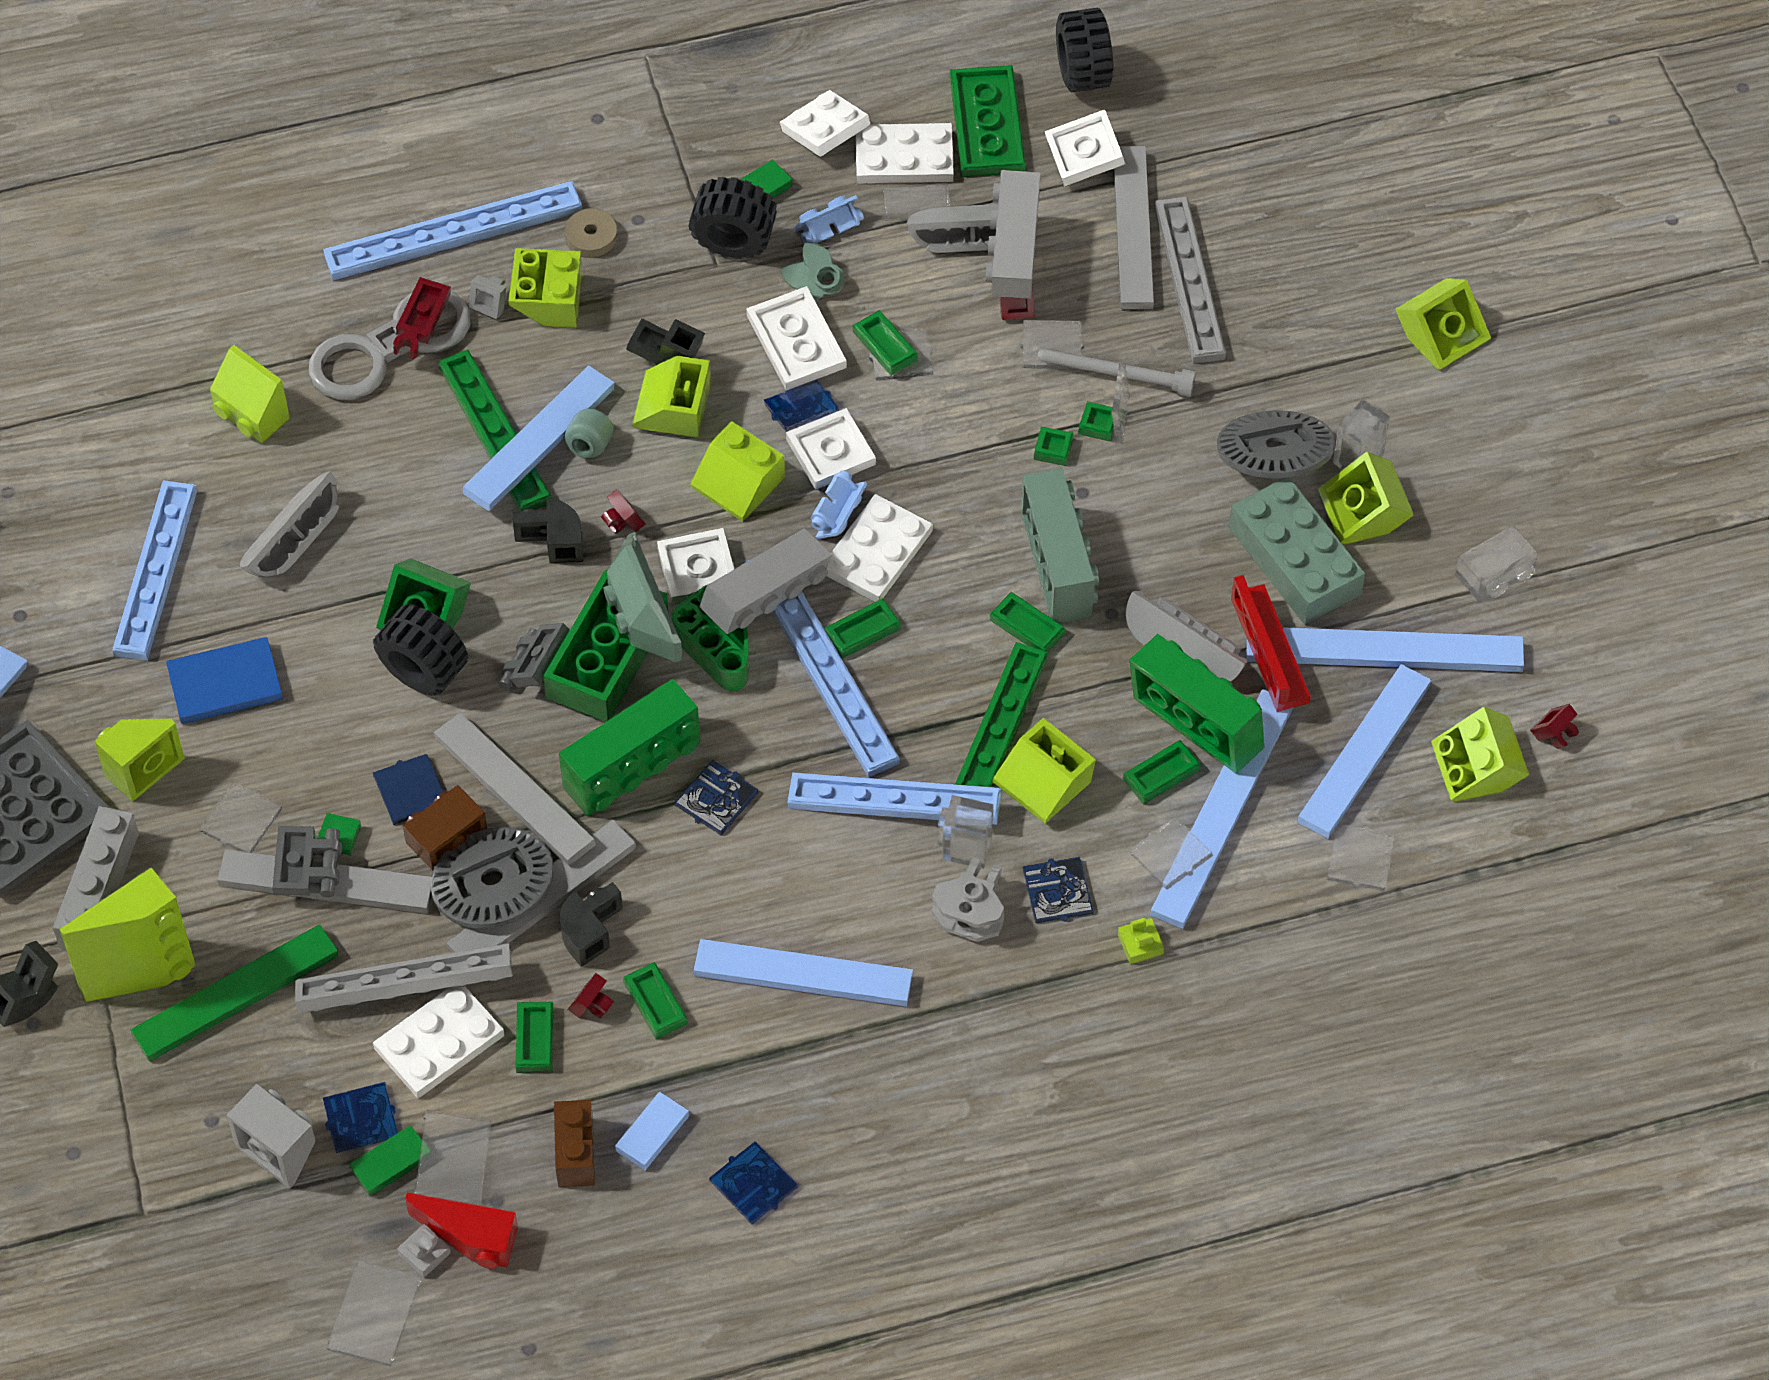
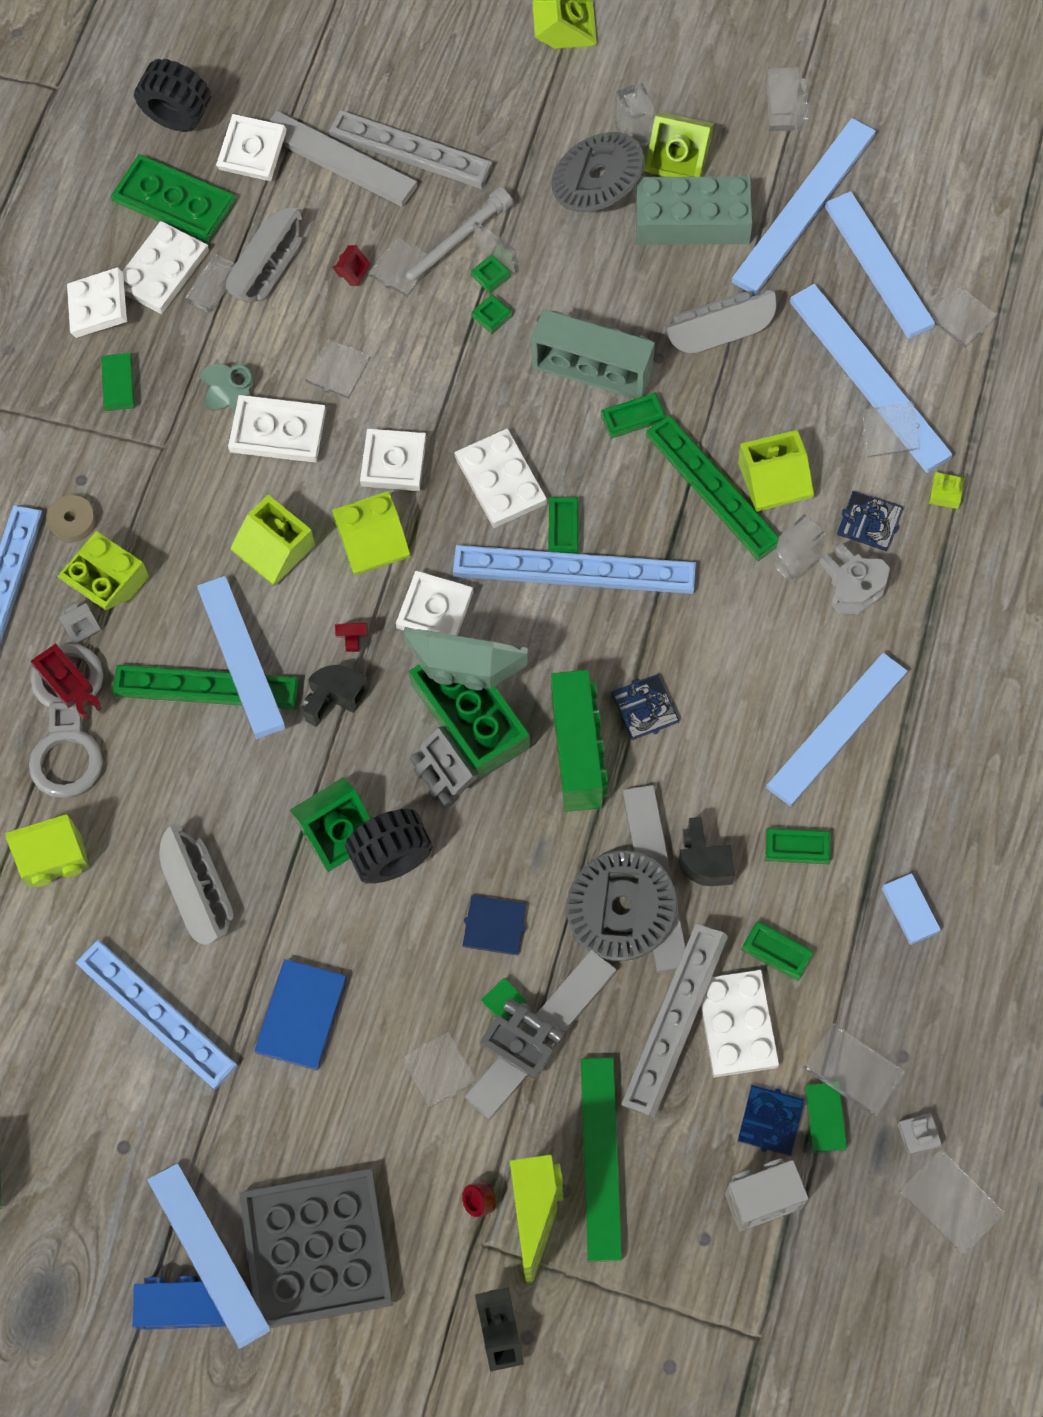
camera: 55 degrees left, 10 degrees up
(99, 865) = (432, 1215): light grey brick -> none
(138, 753) = (337, 1120): lime slope -> none
(443, 825) = (552, 916): reddish brown brick -> none
(475, 1231) = (928, 1088): red slope -> none
(514, 789) = (549, 846): light grey tile -> none
(574, 1143) = (894, 973): reddish brown brick -> none
(589, 433) = (262, 618): sand green head -> none
(592, 998) = (772, 890): dark red tile -> none
(661, 345) = (225, 520): pearl dark grey brick -> none
(699, 630) = (511, 617): green beam -> none
(732, 218) = (145, 407): black tyre -> none
(753, 1182) = (994, 861): clear blue piece -> none
(765, 581) = (494, 564): light grey brick -> none
(801, 405) = (340, 458): clear blue piece -> none
(832, 517) = (451, 481): light blue hinge -> none
(839, 213) = (186, 338): light blue hinge -> none
(882, 796) = (727, 586): light blue tile -> none
(885, 342) = (324, 372): green tile -> none
(1015, 234) = (308, 227): light grey brick -> none
(1161, 771) = (814, 399): green tile -> none
(1197, 703) = (790, 338): green brick -> none
(1269, 645) = (762, 271): red fence -> none
(1480, 756) = (932, 198): lime slope -> none
(1553, 724) = (935, 138): dark red tile -> none

